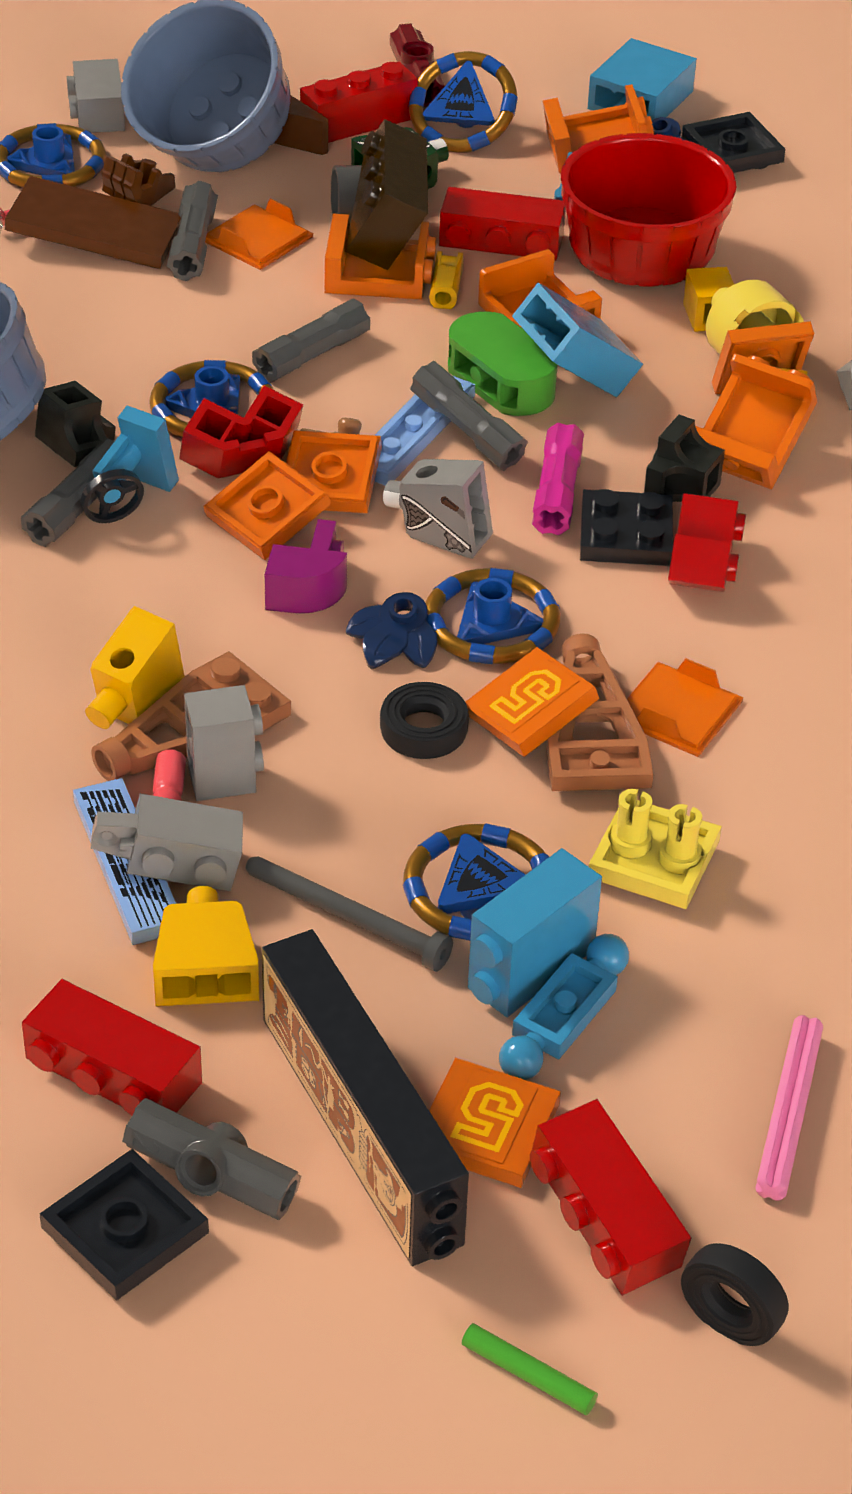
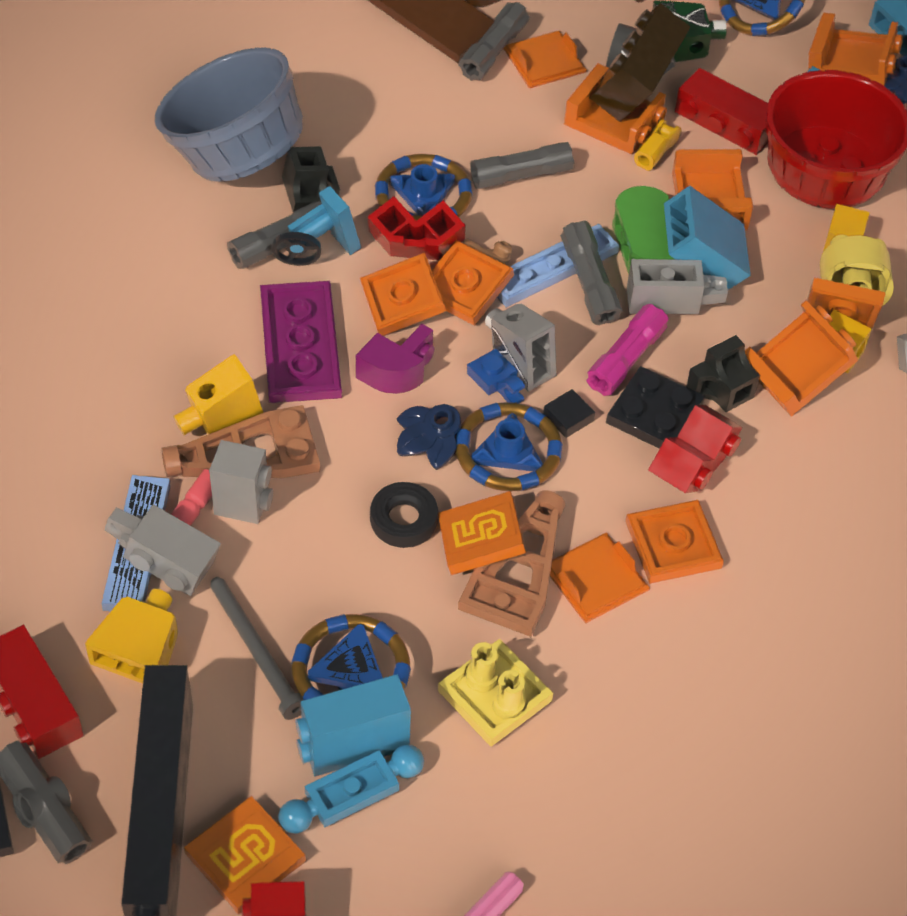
camera: 25 degrees right, 10 degrees up
(174, 581) = (300, 342): none -> magenta tile
(429, 550) = (495, 374): none -> blue plate
(537, 560) = (569, 413): none -> black tile
(566, 395) = (673, 286): none -> light grey hinge
(738, 643) = (674, 541): none -> orange tile

